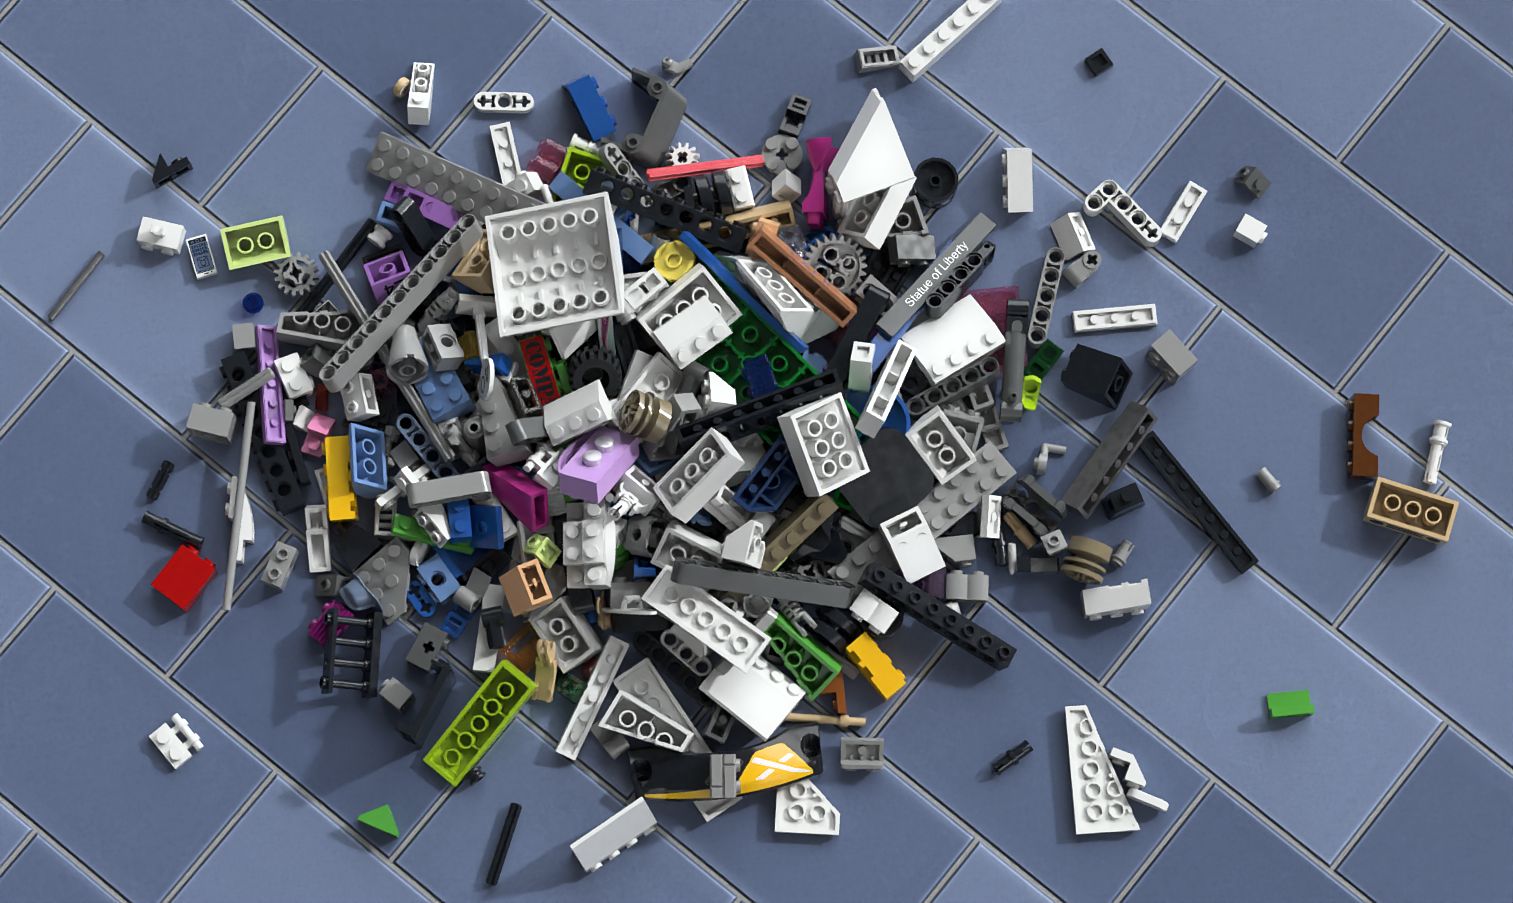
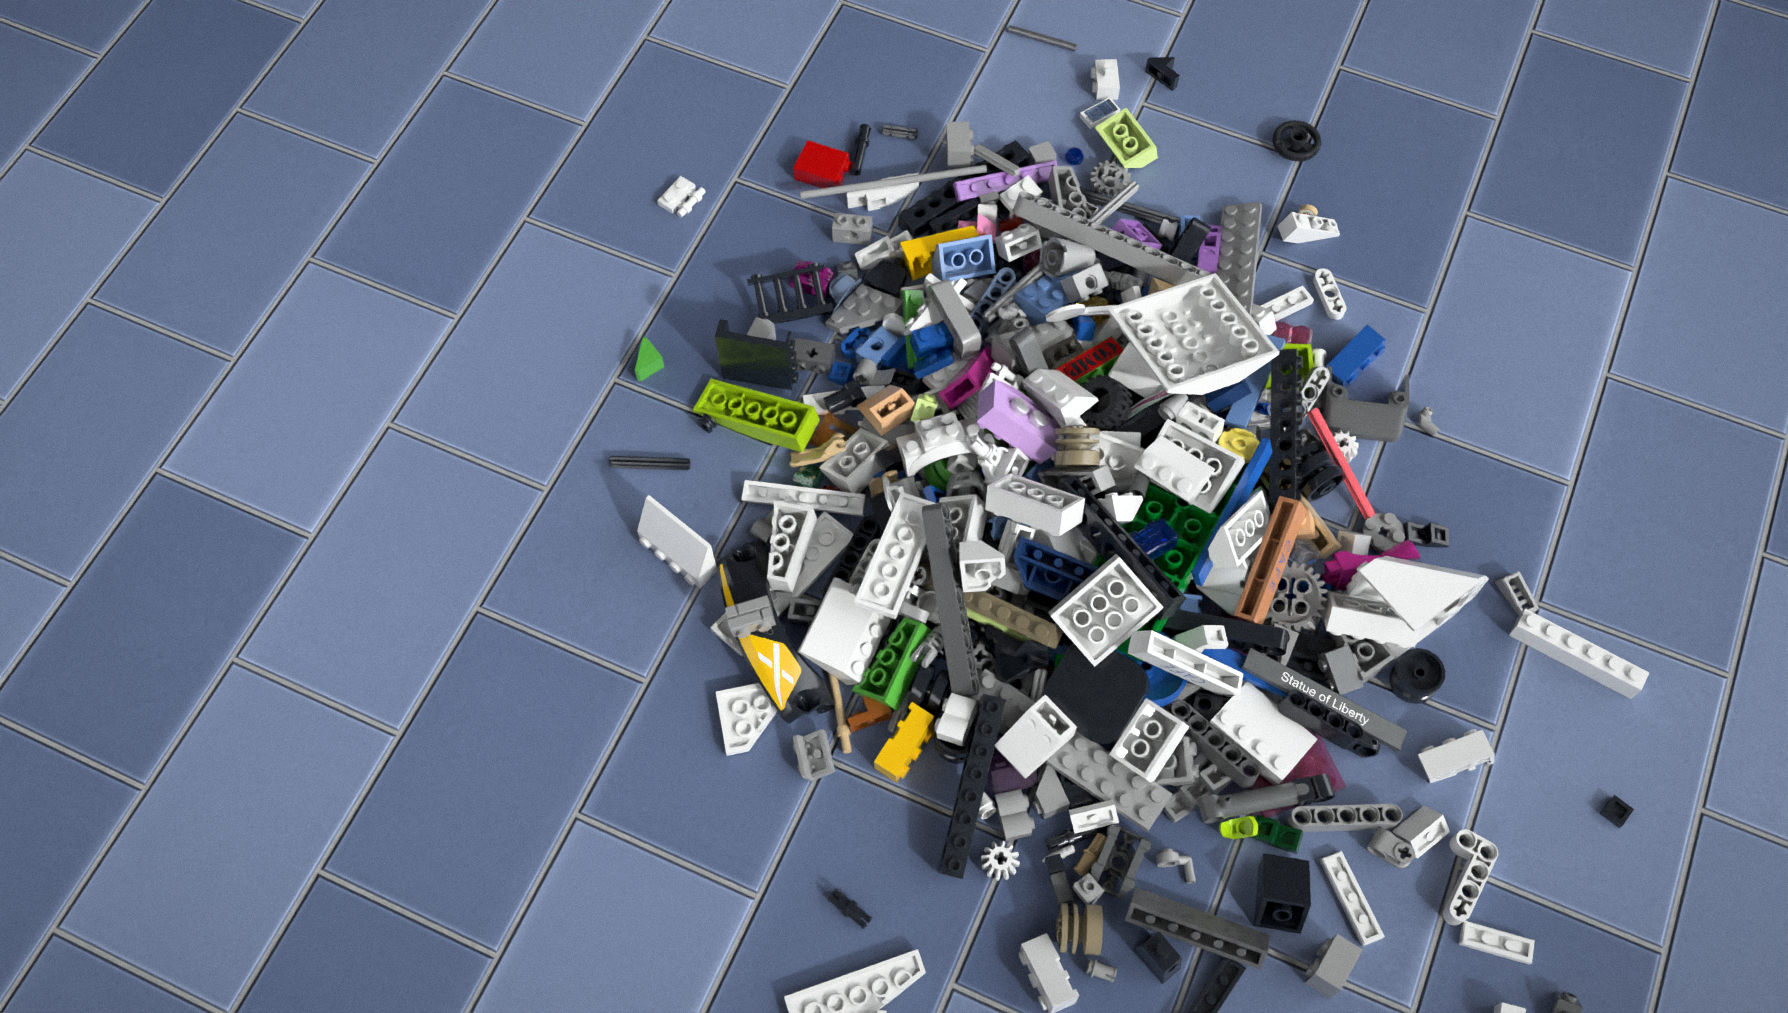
camera: 80 degrees right, 15 degrees down
(307, 81) = (1296, 142): none -> black wheel
(739, 188) = (1334, 500): white brick -> none
(1009, 618) = (992, 864): none -> white gear

